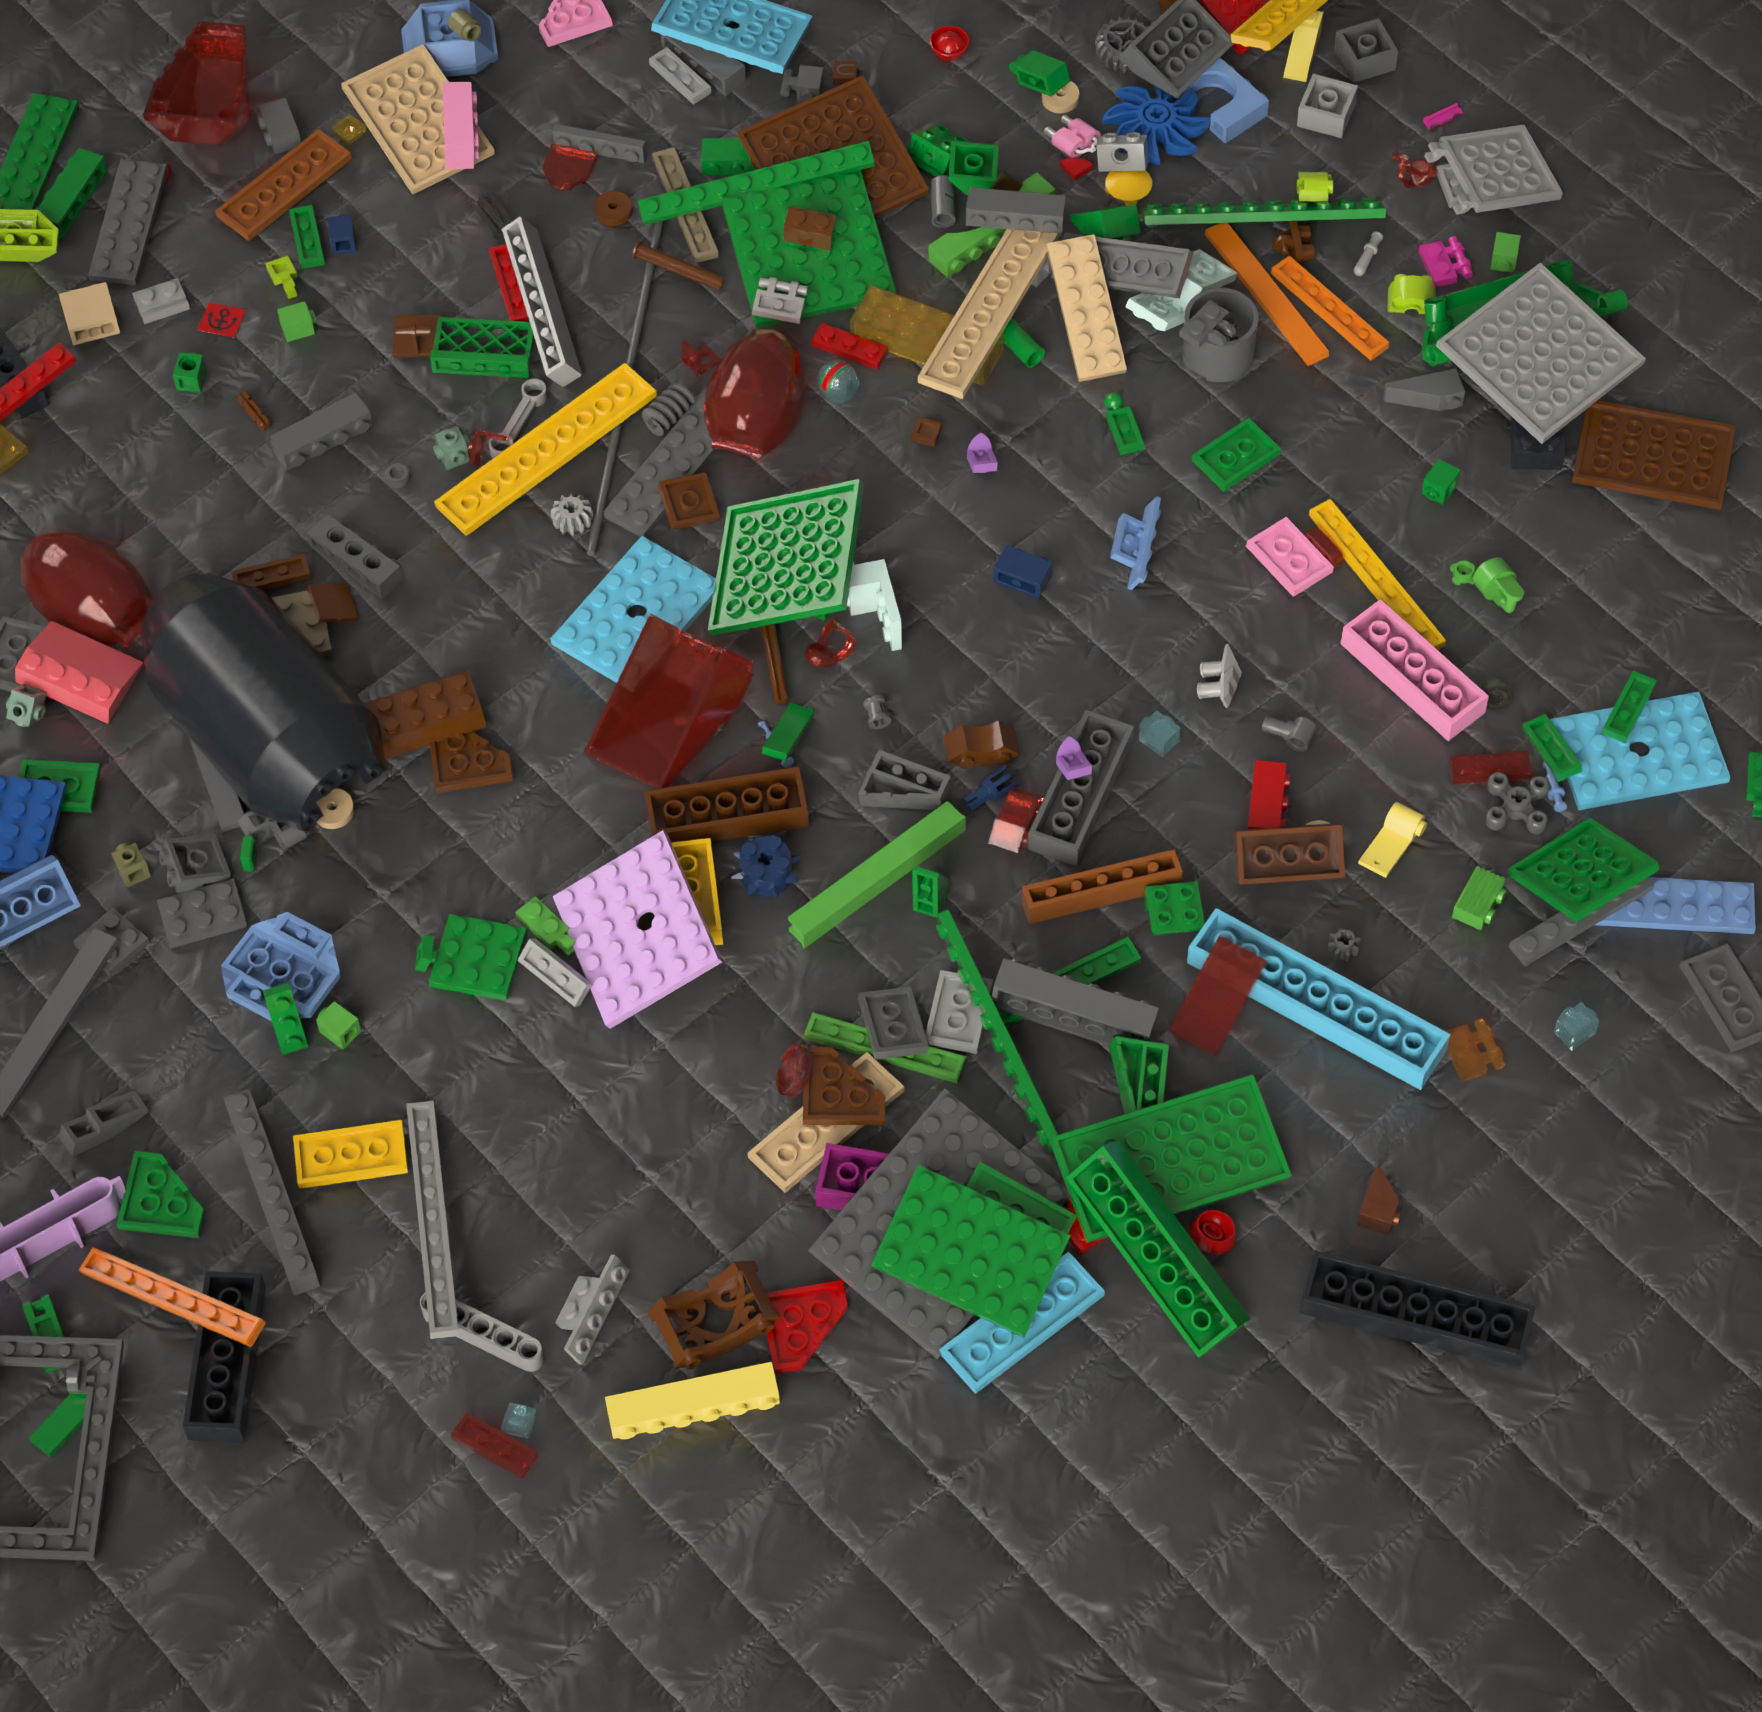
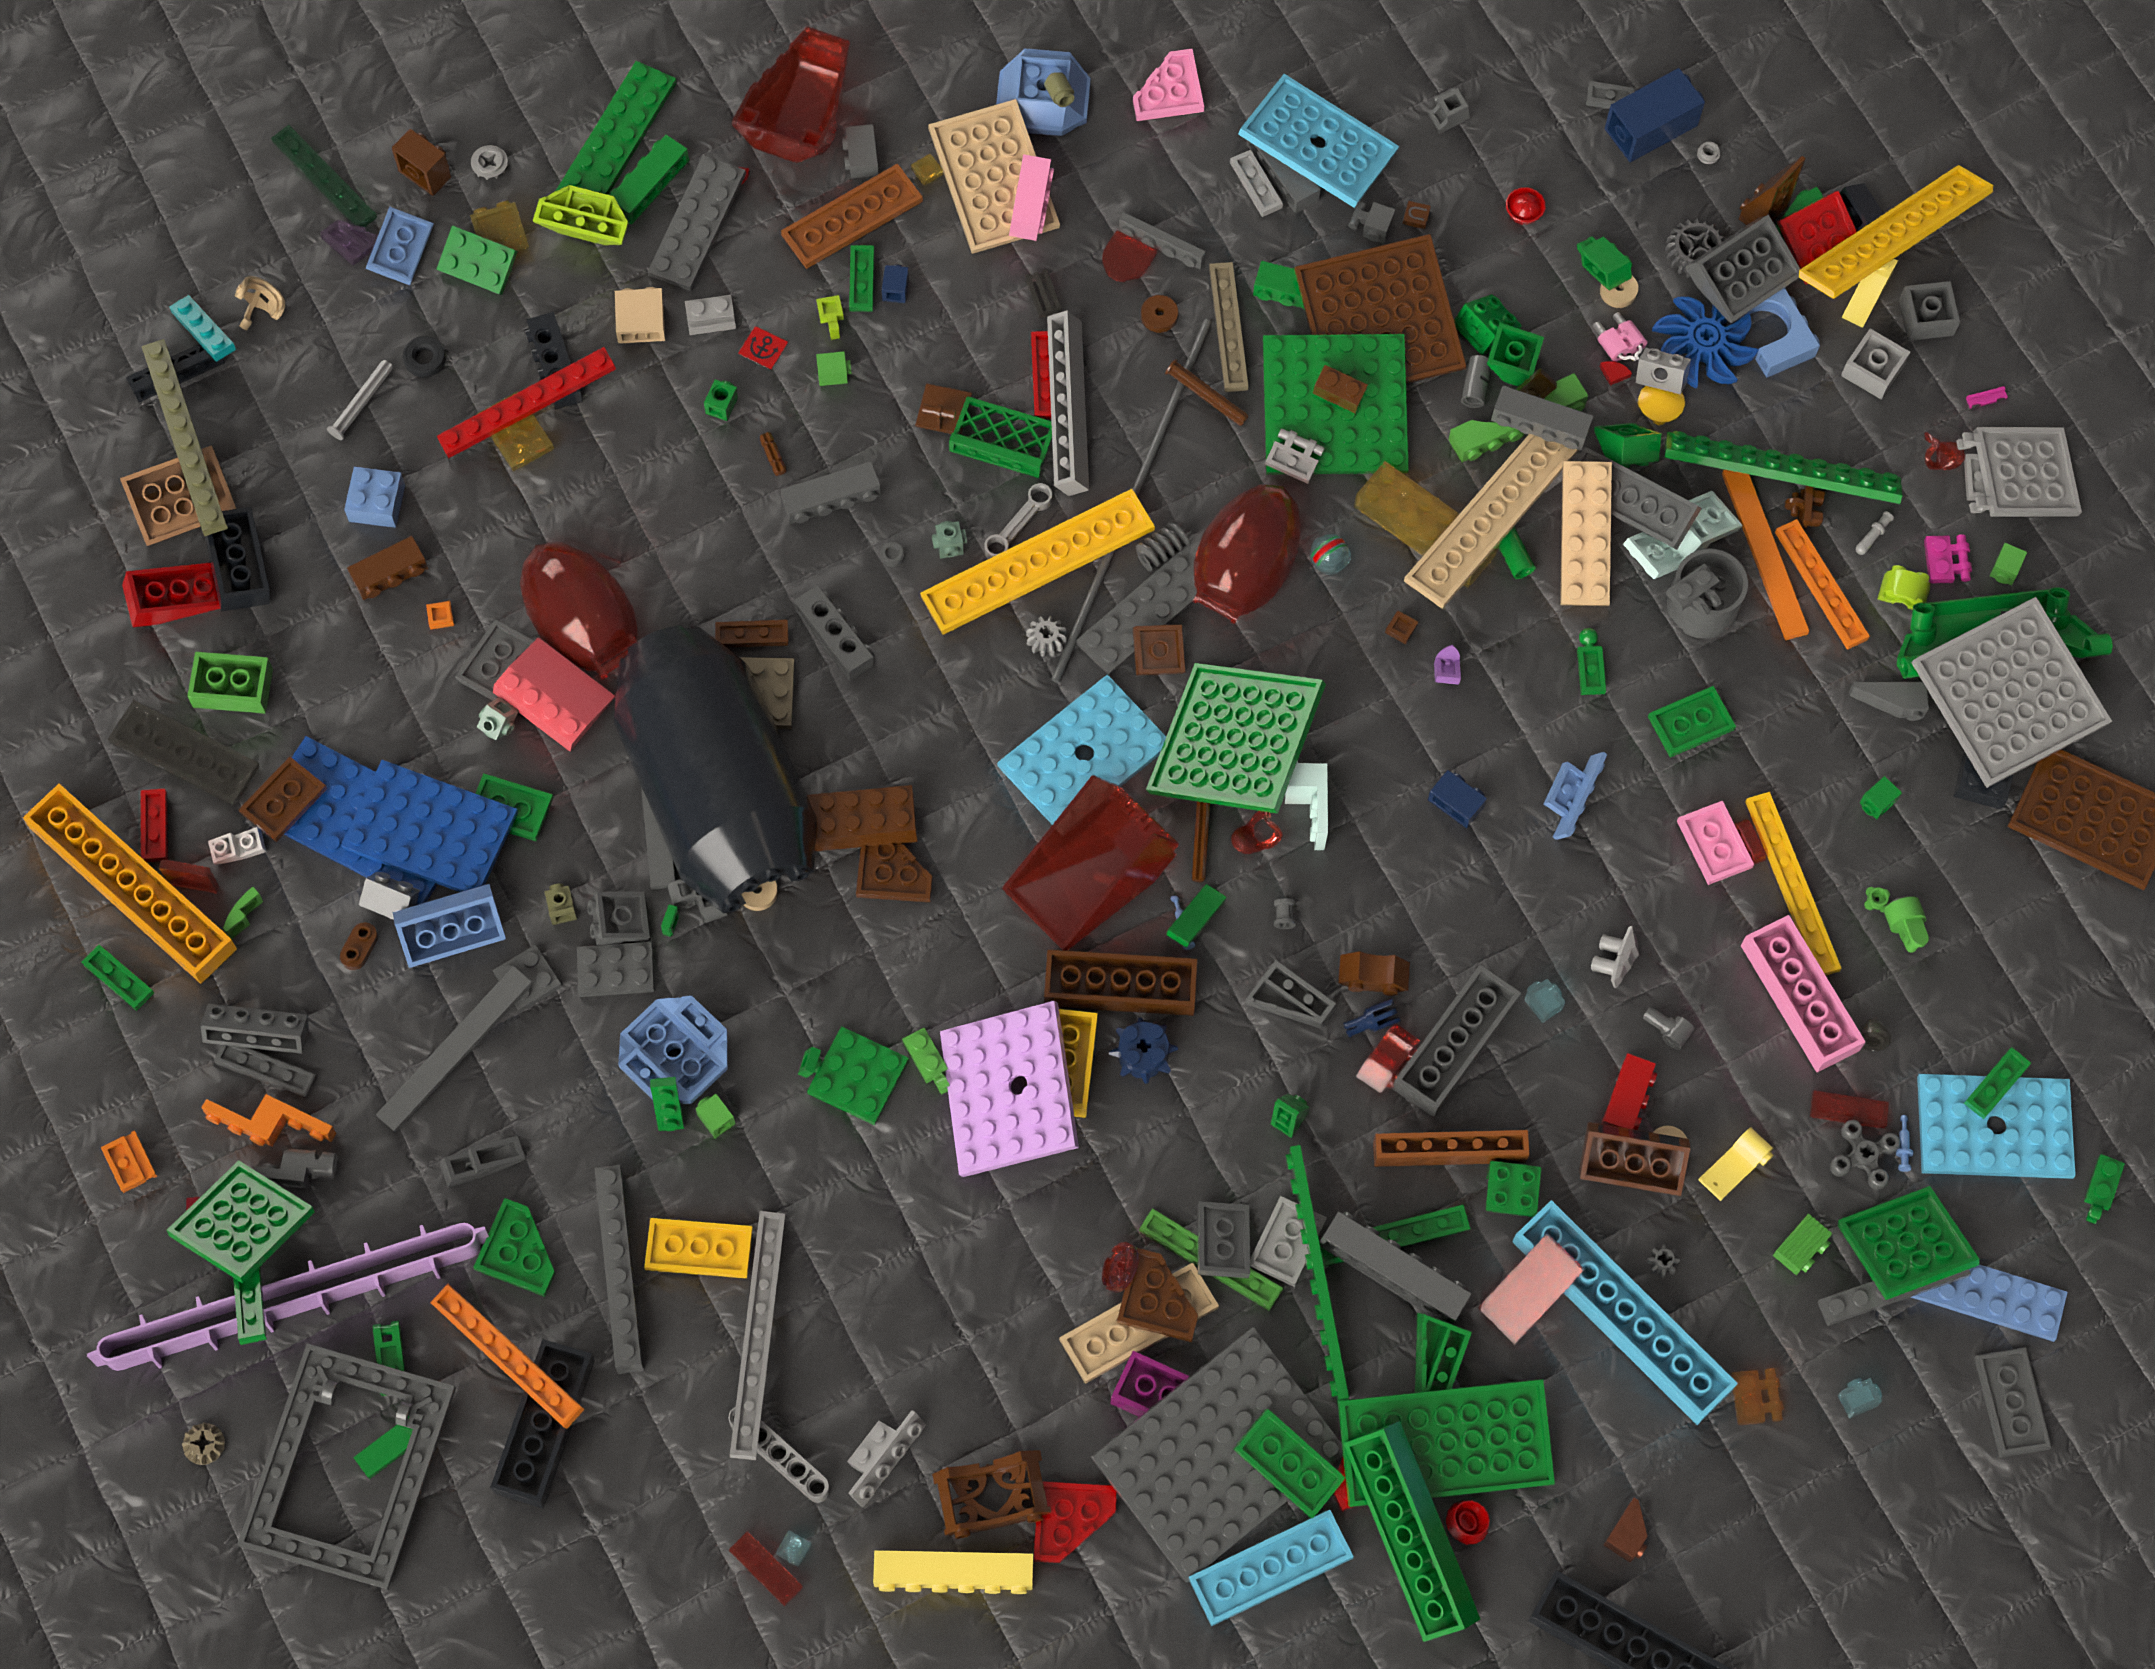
camera: 10 degrees right, 10 degrees up
(332, 602) = (802, 676): reddish brown piece -> none
(476, 445) = (973, 542): clear red bracket -> none
(554, 972) = (924, 1110): light grey plate -> none
(692, 360) = (1197, 499): clear red bracket -> none
(789, 173) = (1303, 323): green plate -> none
(849, 346) = (1350, 516): red plate -> none
(876, 874) = (1244, 1082): bright green tile -> none
(970, 1251) = (1238, 1494): green plate -> none
(1072, 760) = (1453, 1018): medium lavender plate -> none
(1314, 186) = (1839, 452): lime cylinder -> none
(1552, 747) = (1912, 1105): green plate -> none

